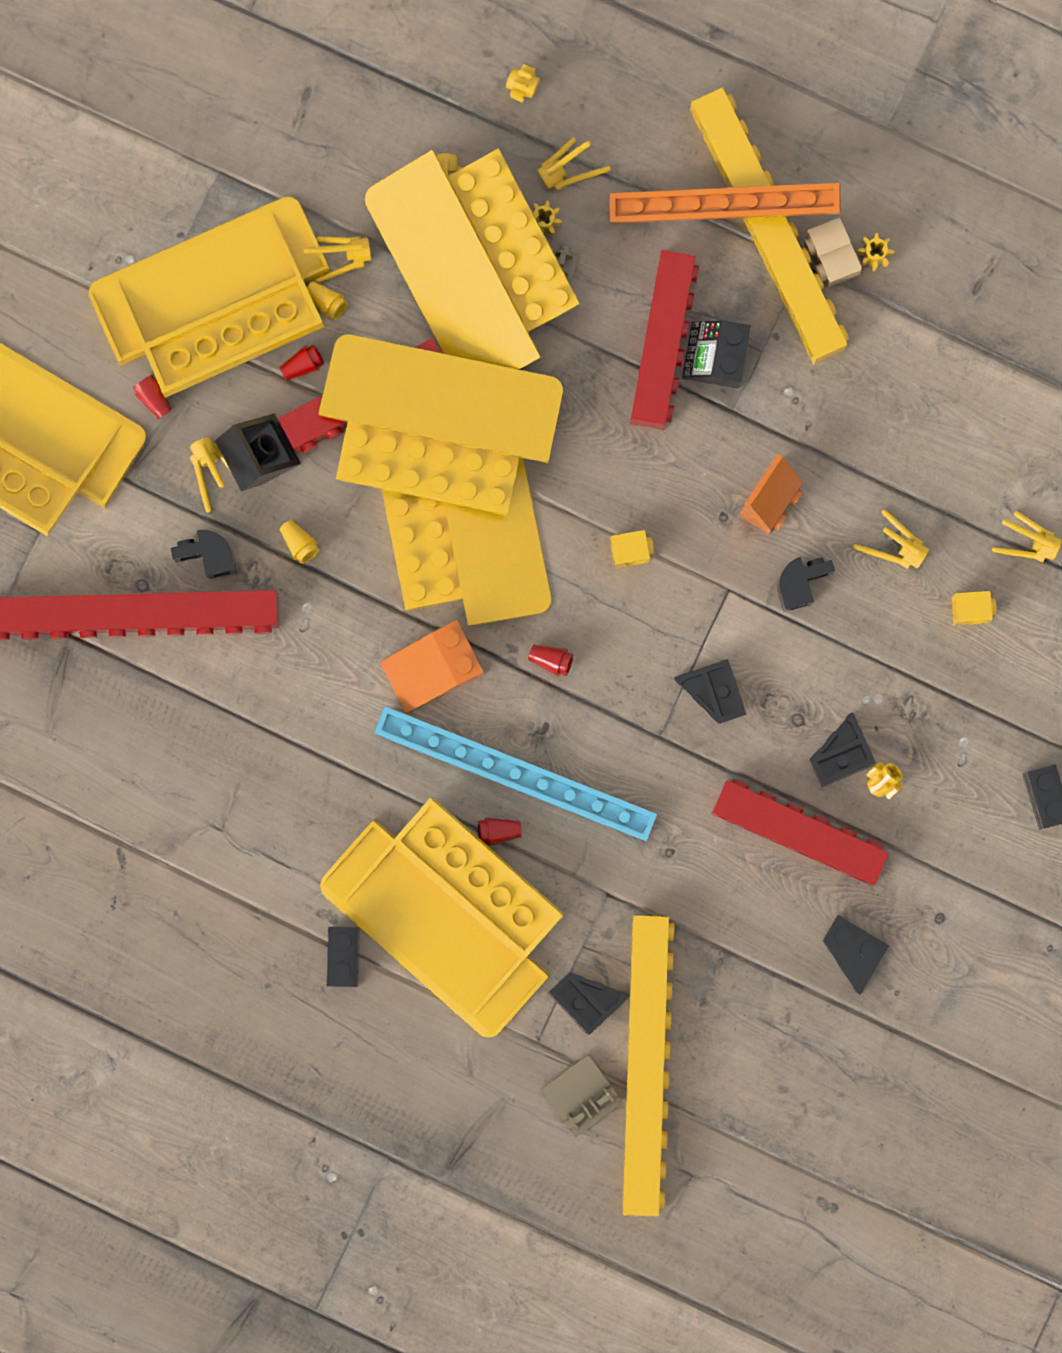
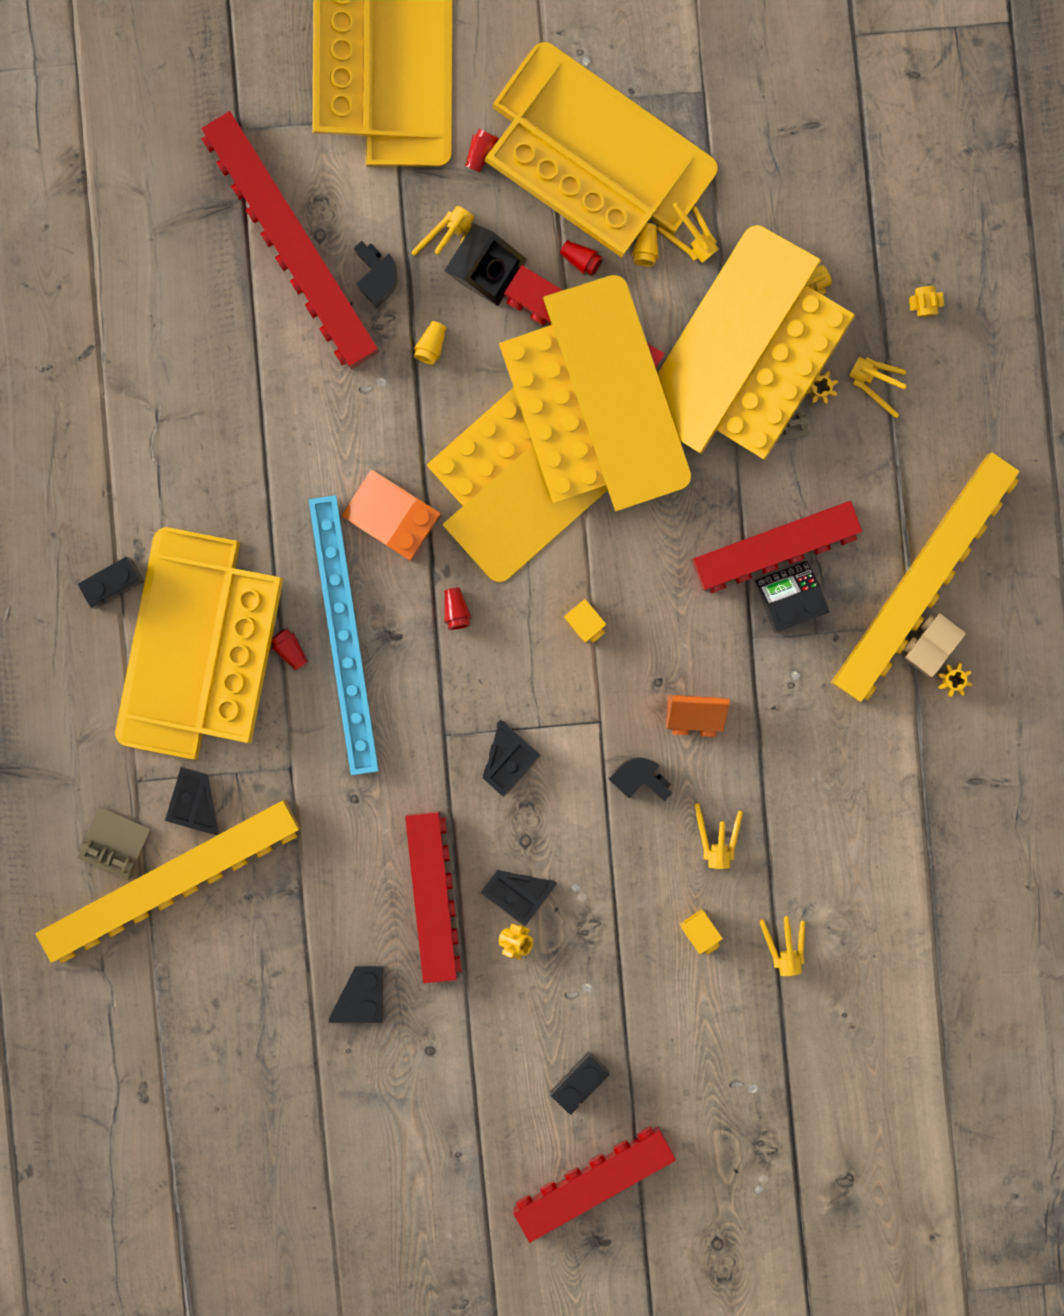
camera: 55 degrees right, 5 degrees up
(725, 203) = (921, 531): orange plate -> none

